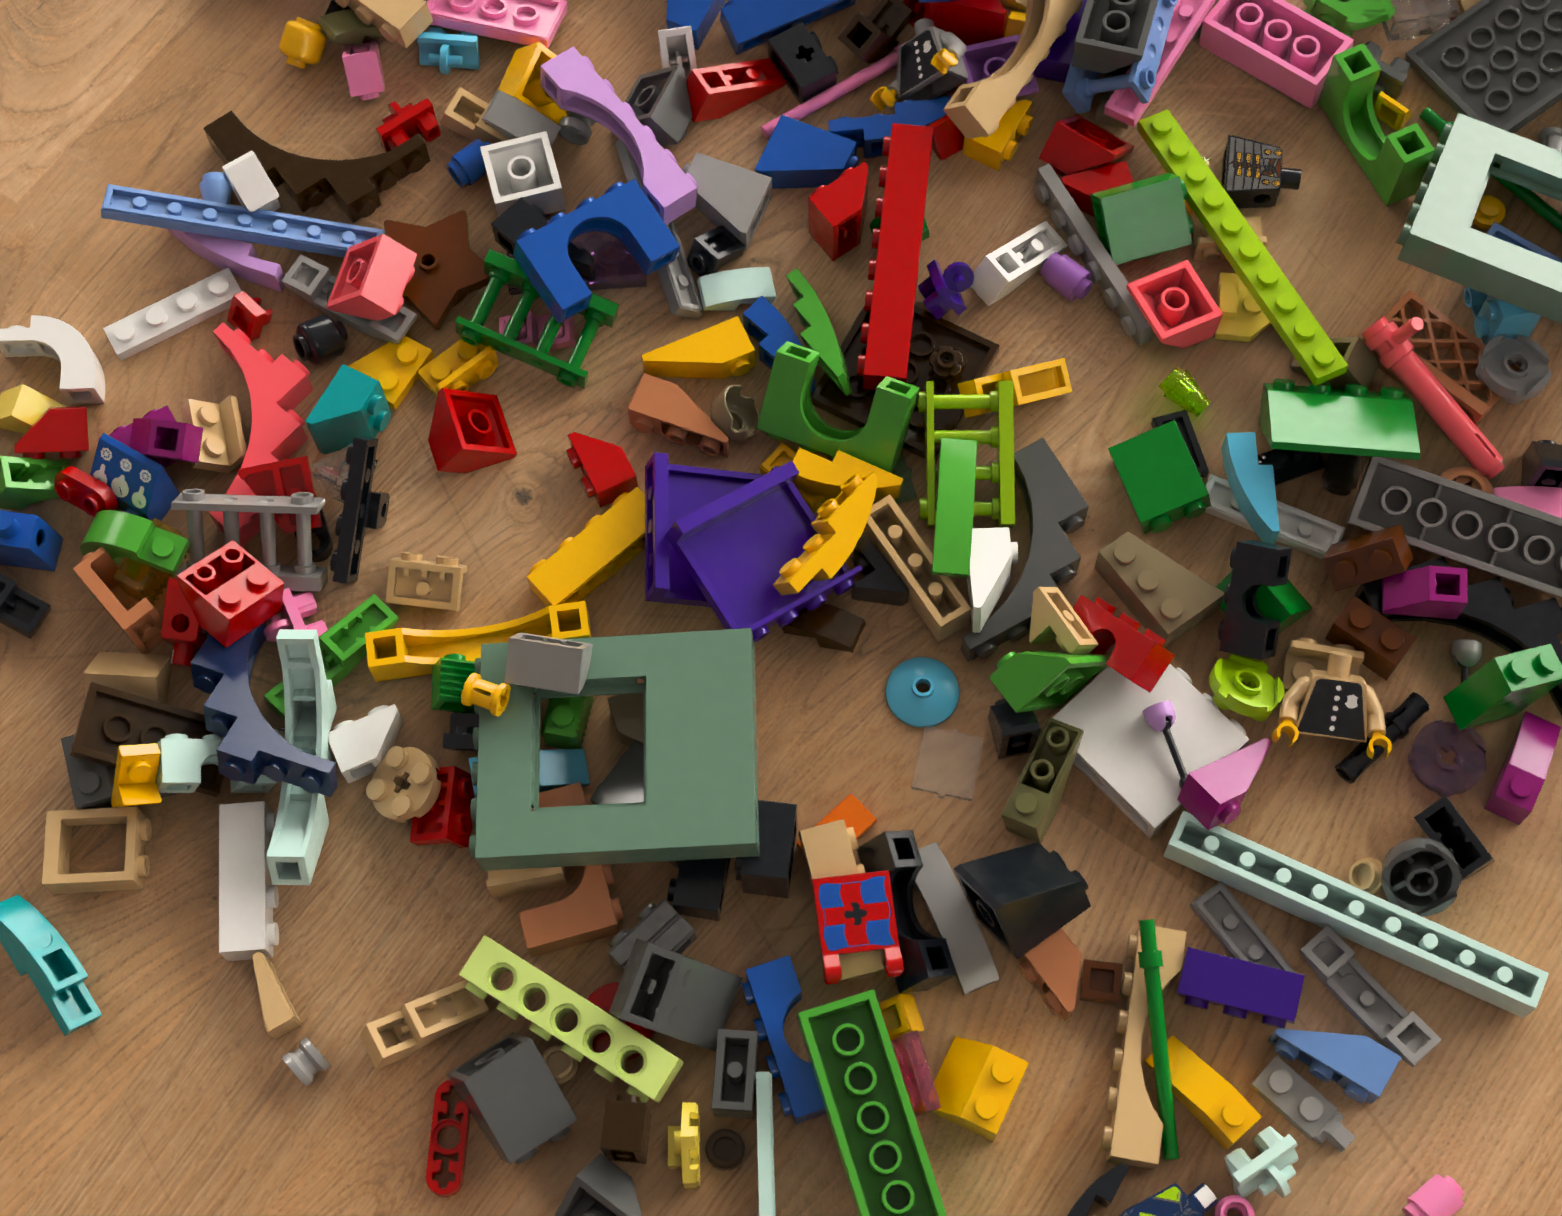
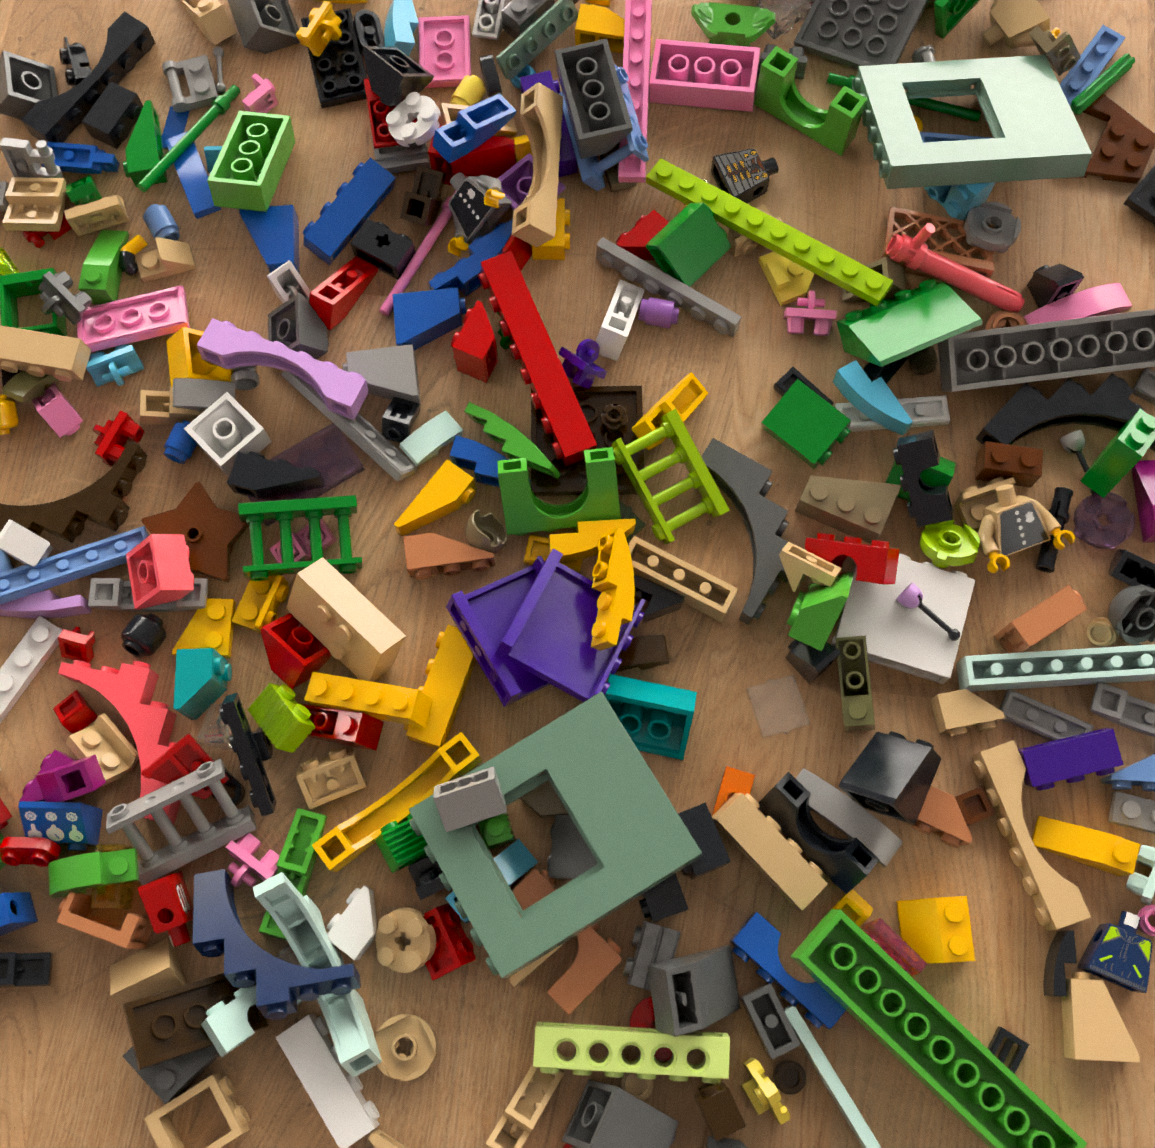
camera: 30 degrees left, 5 degrees up
(136, 776) = (203, 1059): yellow slope -> none
(208, 382) = (75, 712): none -> red slope
(231, 593) = (192, 872): red slope -> none
(357, 908) = (423, 1052): none -> tan plate
(410, 492) = (281, 717): none -> lime brick
(462, 533) = (345, 727): none -> red slope
(473, 694) = (428, 855): yellow bush -> none
(509, 519) = (372, 698): none -> yellow brick
(531, 428) = (344, 621): none -> tan brick
(604, 468) = (415, 621): red slope -> none
(620, 212) = (321, 426): blue arch -> none
(800, 696) = (653, 714): none -> teal slope
(856, 917) = (790, 861): red flag -> none
(921, 708) = (728, 678): medium azure dish -> none
(954, 508) = (685, 521): bright green slope -> none
(989, 571) = (726, 549): white slope -> none
(1081, 144) = (616, 214): red slope -> none
(1151, 875) = (963, 710): none -> tan slope
(1151, 960) = (1007, 777): green bar -> none
(1177, 305) = (749, 294): coral slope -> none
(1184, 391) = (785, 354): clear neon green cone -> none
(1218, 789) = (983, 623): slope -> none
(1250, 372) = (822, 318): none -> bright pink hips
(1299, 821) = (1041, 621): none -> nougat window
(1368, 558) = (979, 409): reddish brown brick -> none
(1391, 111) = (808, 87): yellow slope -> none
(1426, 592) = (1035, 414): magenta slope -> none

